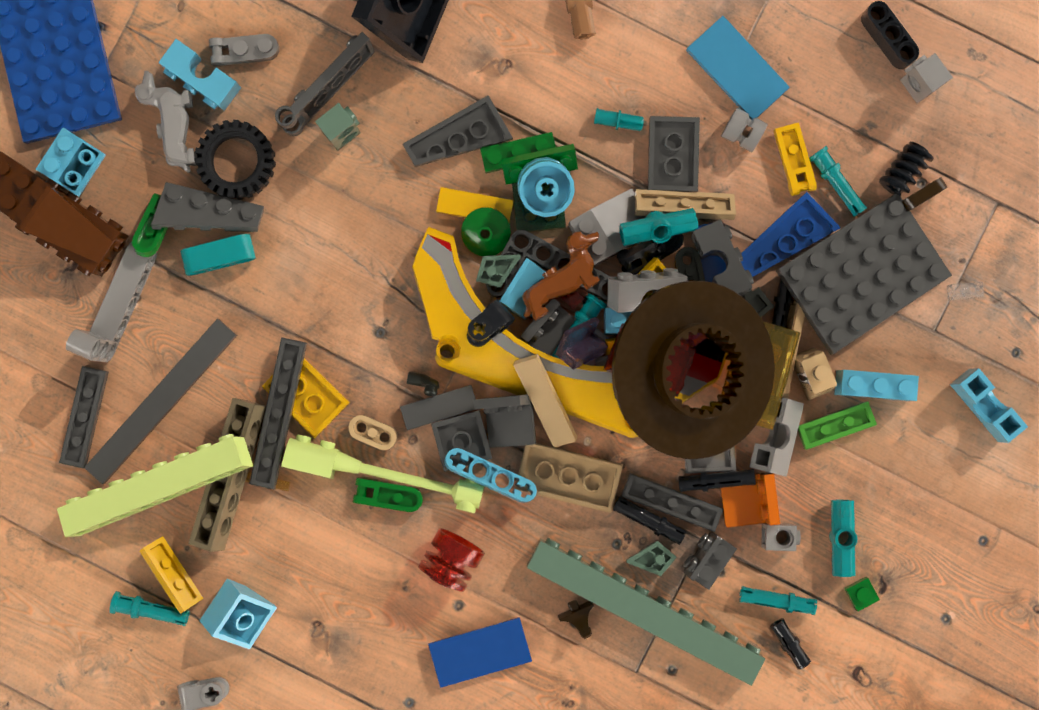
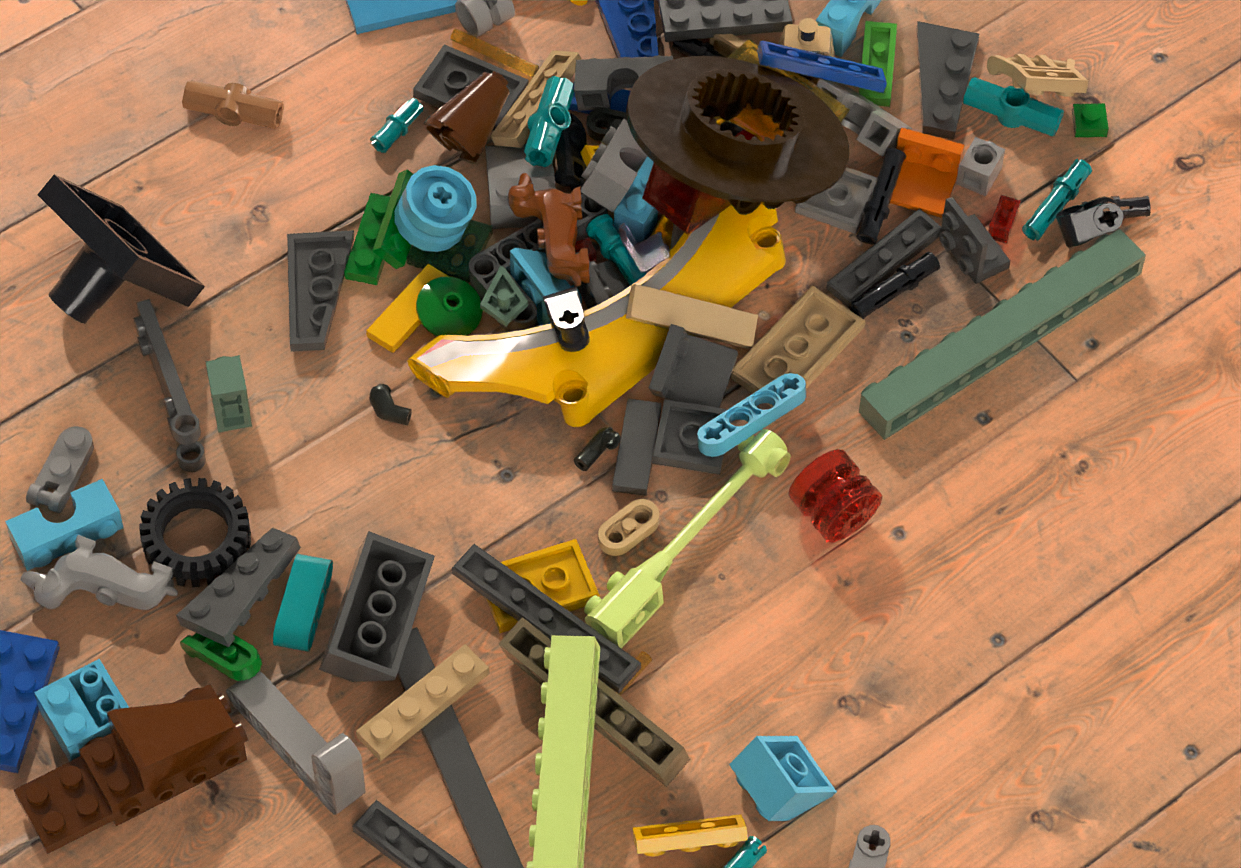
camera: 65 degrees left, 30 degrees down
(181, 367) = (422, 702): none -> tan plate
(227, 306) = (377, 611): none -> dark grey slope
(388, 230) = (385, 407): none -> pearl dark grey arm
(388, 495) = (717, 544): green plate -> none
(480, 652) = (969, 527): blue piece -> none
(578, 617) = (980, 403): dark brown piece -> none
(637, 169) = (470, 116): none -> reddish brown cone
(653, 558) = (944, 302): sand green piece -> none
(715, 154) = (494, 52): none -> clear yellow bar
(743, 570) = (1004, 218): none -> clear red piece
(763, 633) = (1085, 221): none -> piece
(798, 394) = (821, 66): none -> blue tile
(858, 473) = (944, 74): none -> dark grey wing
(866, 554) = (1039, 74): none -> tan plate

